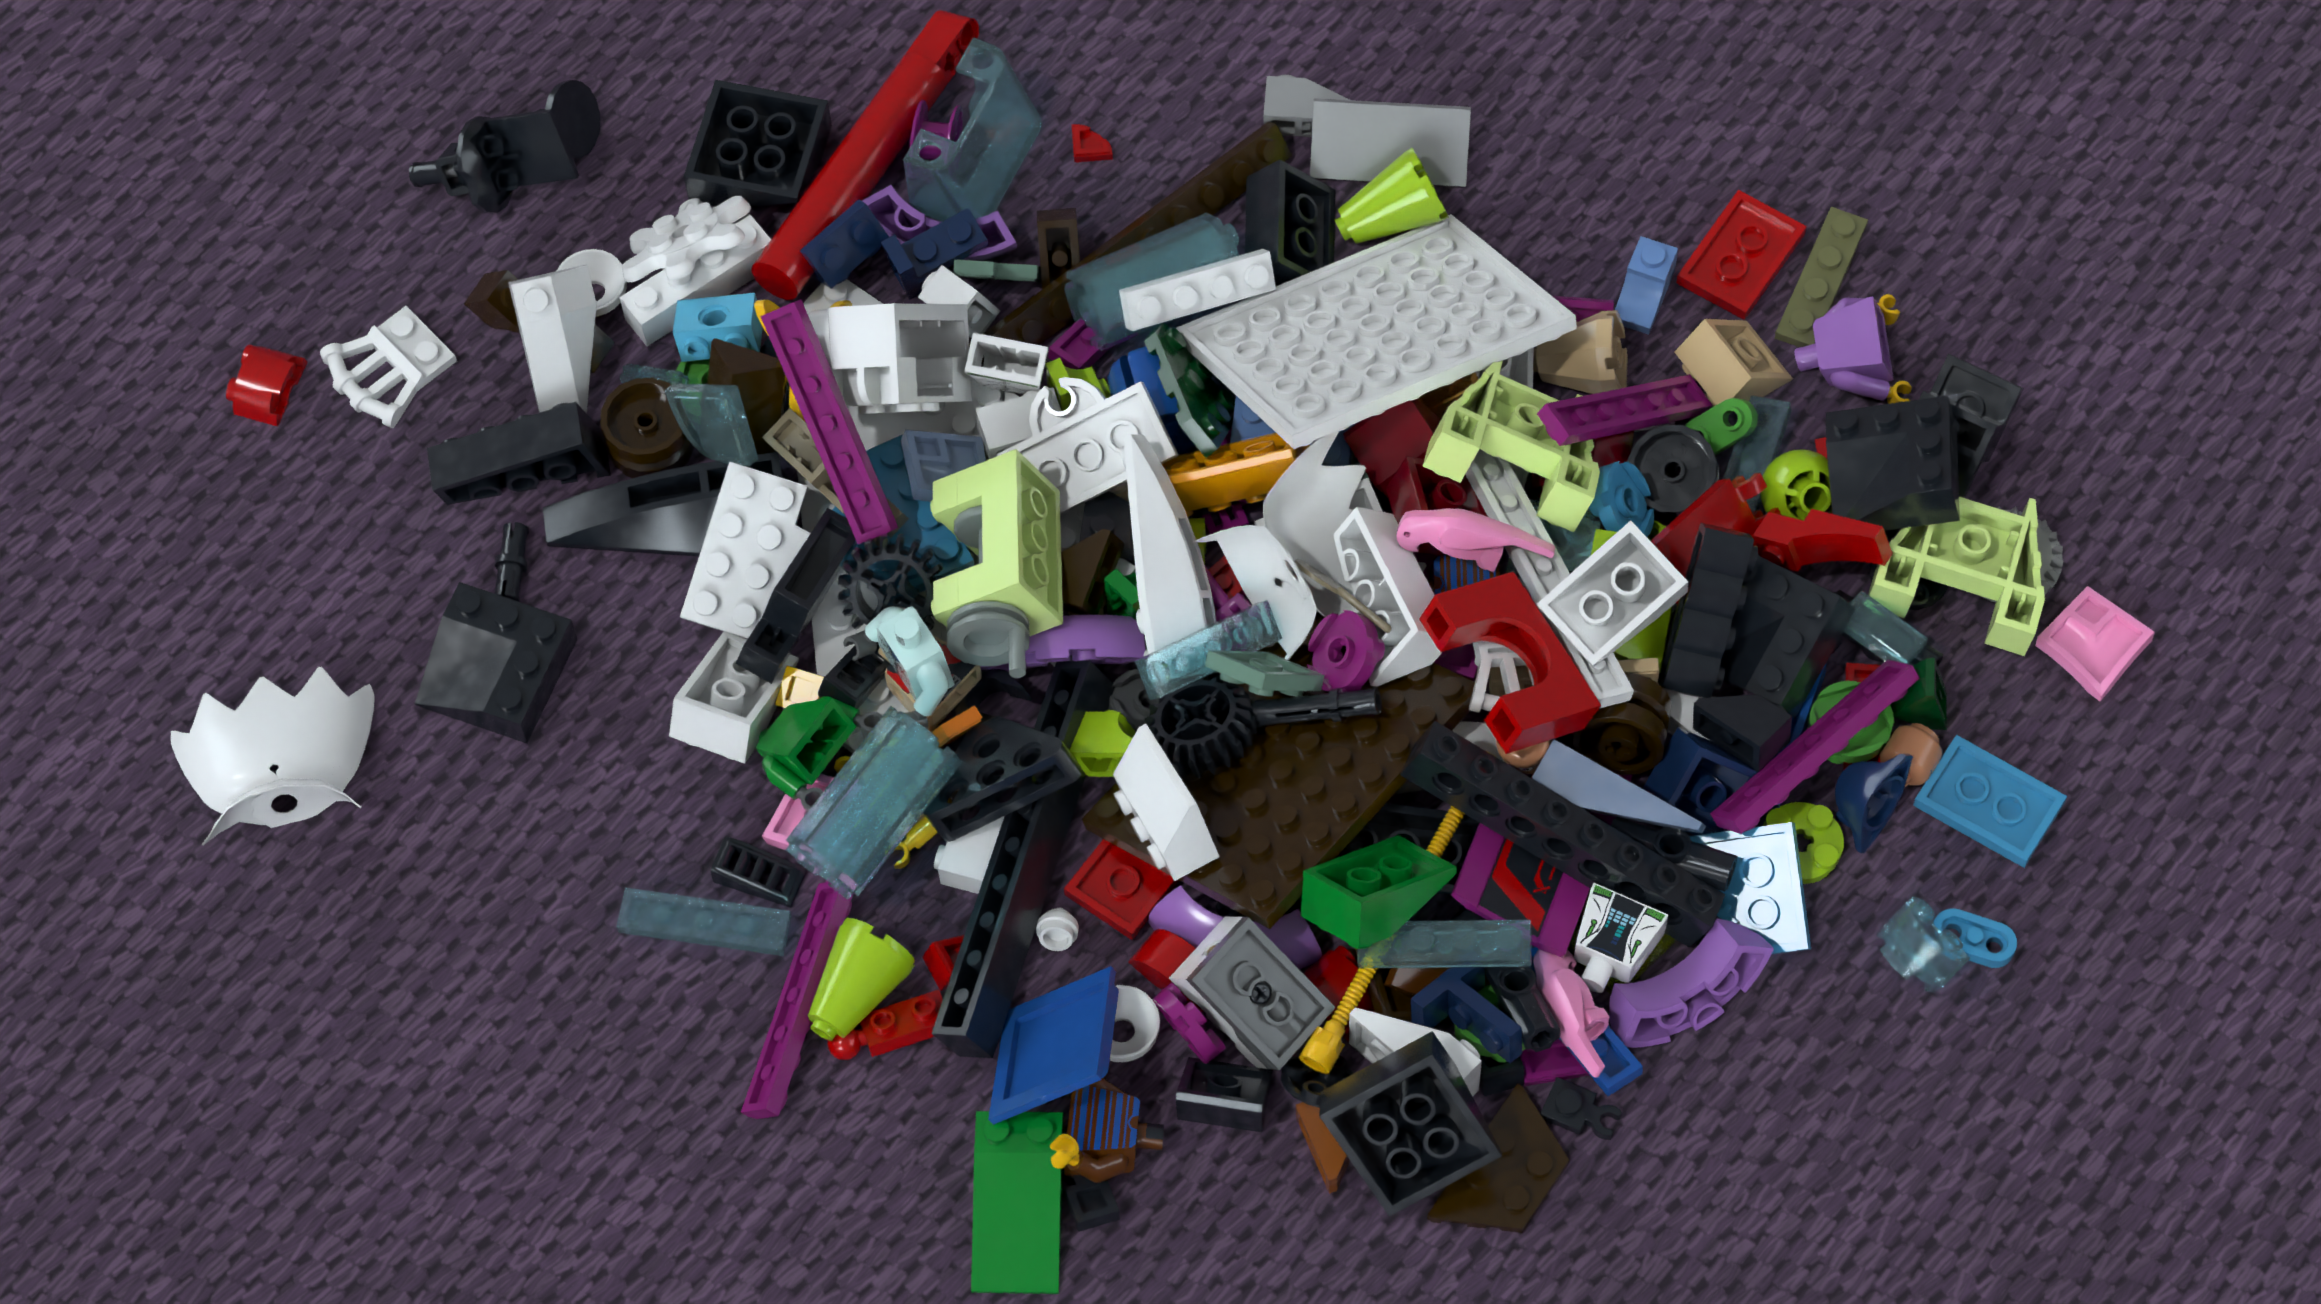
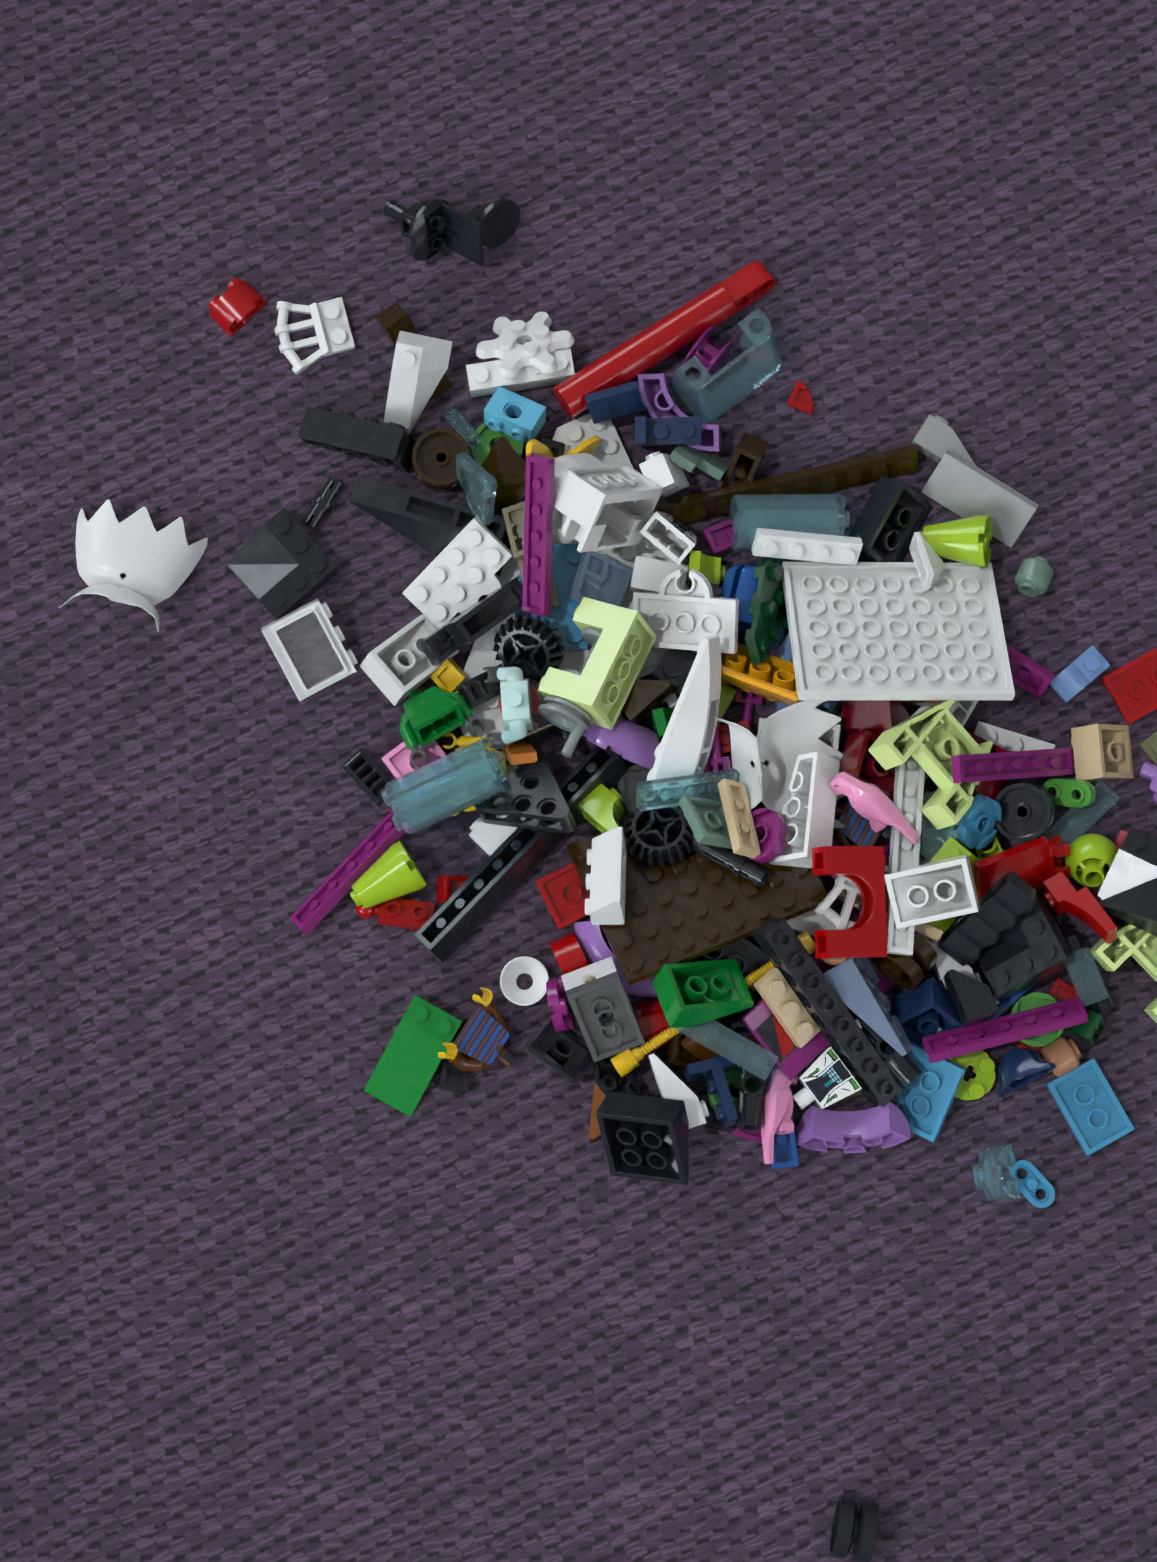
camera: 25 degrees right, 20 degrees up
(588, 741) = (309, 649): none -> window
(603, 270) = (463, 329): white piece -> none
(704, 921) = (324, 791): clear light blue plate -> none
(756, 145) = (598, 301): black slope -> none
(1055, 1045) = (476, 982): blue piece -> none
(1057, 929) = (519, 901): white plate -> none
(1299, 646) = (739, 818): none -> tan plate
(1330, 584) = (779, 787): dark tan piece -> none
(1361, 242) = (926, 561): none -> white slope
(1504, 855) = (786, 1007): none -> tan plate
(1516, 202) = (1034, 576): none -> sand green head
(1516, 1184) = (707, 1179): dark brown wing -> none
(1573, 1106) = (749, 1162): black plate -> none
(1587, 357) = (1024, 710): tan cone -> none

